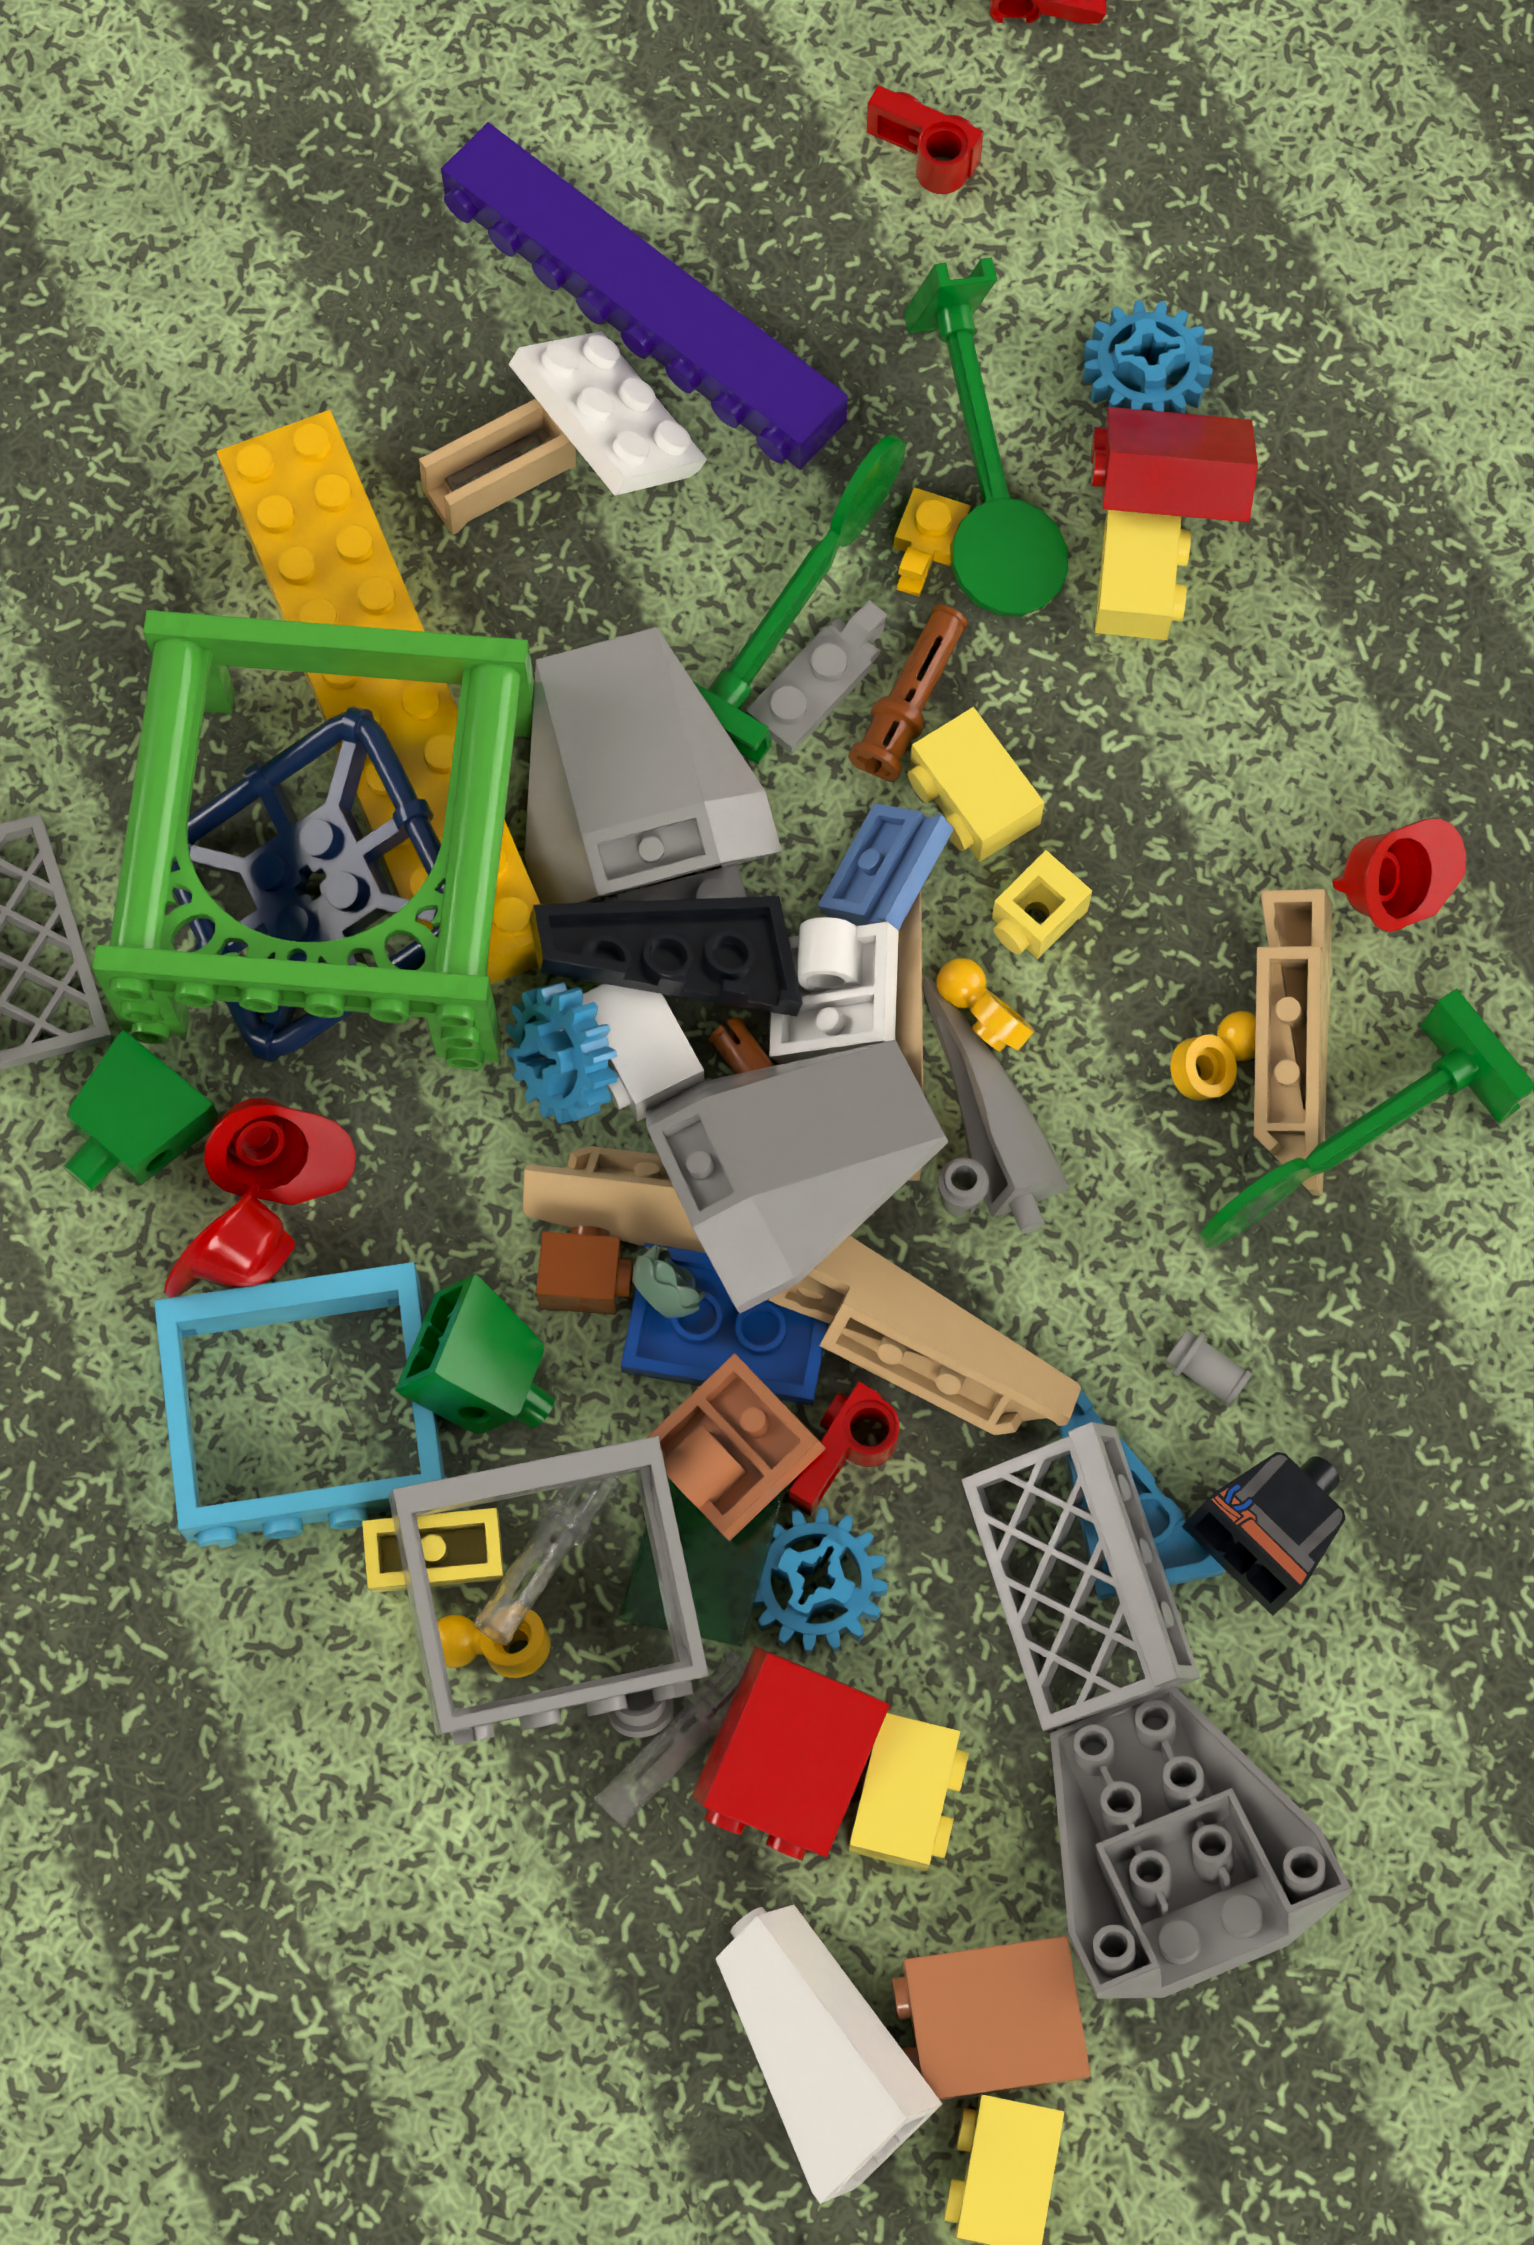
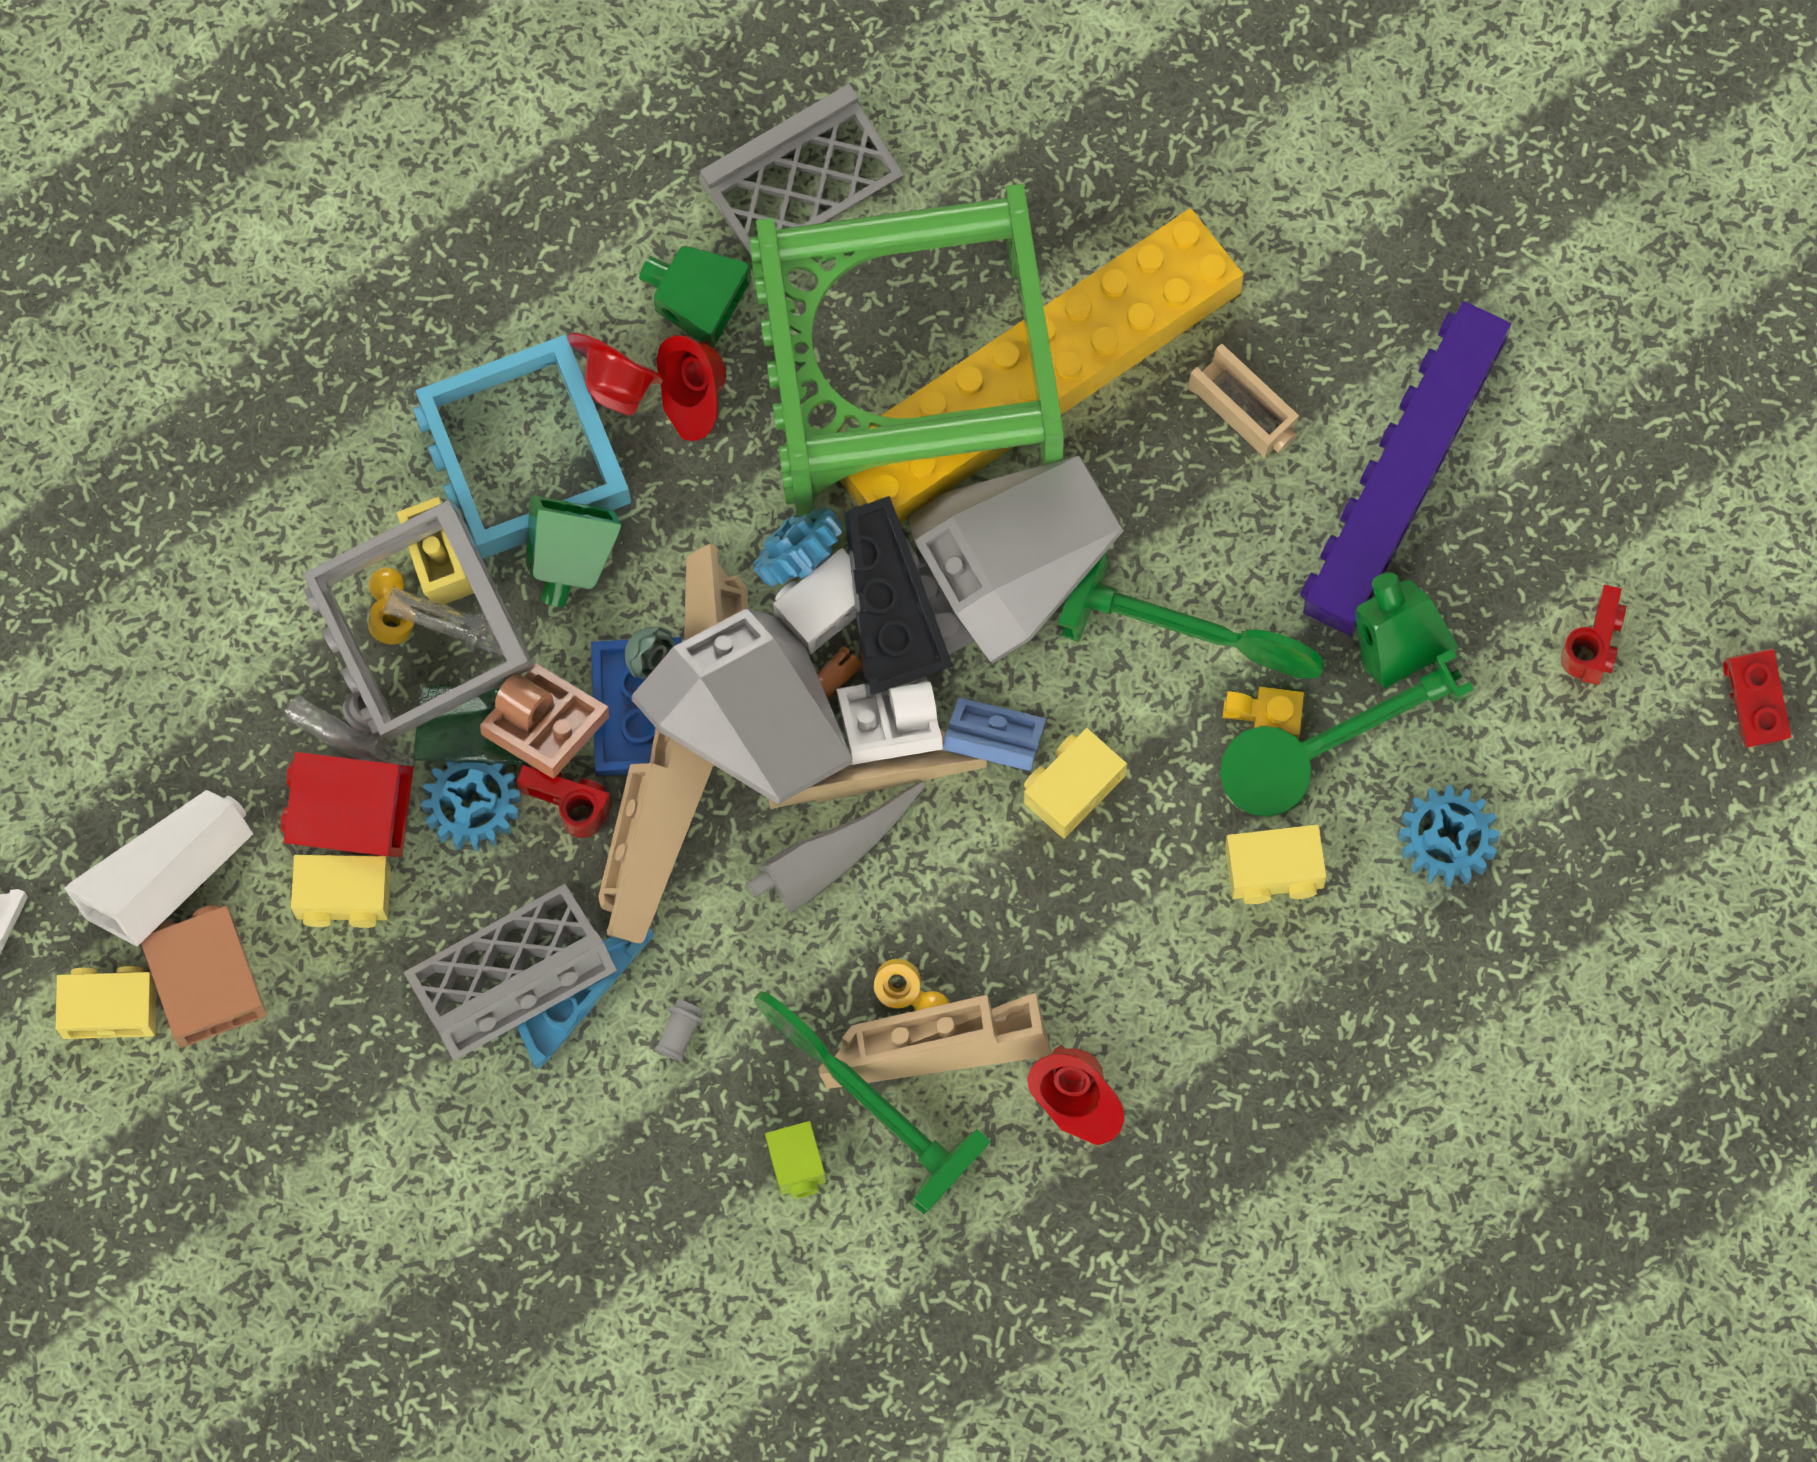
camera: 80 degrees right, 0 degrees up
(318, 843) = (906, 343): dark blue plate -> none
(582, 1271) = (652, 598): dark orange brick -> none
(607, 412) = (1300, 464): white plate -> none
(819, 677) = (1136, 661): light grey hinge -> none
(872, 347) = (1399, 630): none -> green torso
(901, 711) = (1194, 736): dark orange pin -> none
(964, 986) = (901, 834): yellow plate -> none
(969, 1175) = (765, 825): light grey pin -> none
(1045, 887) = (986, 828): light yellow brick -> none
(1175, 464) = (1358, 865): red brick -> none
(1179, 1850) = (335, 1067): light grey wedge -> none
(1271, 1526) = (571, 1088): black torso -> none
(1425, 1248) = (796, 1160): none -> lime brick

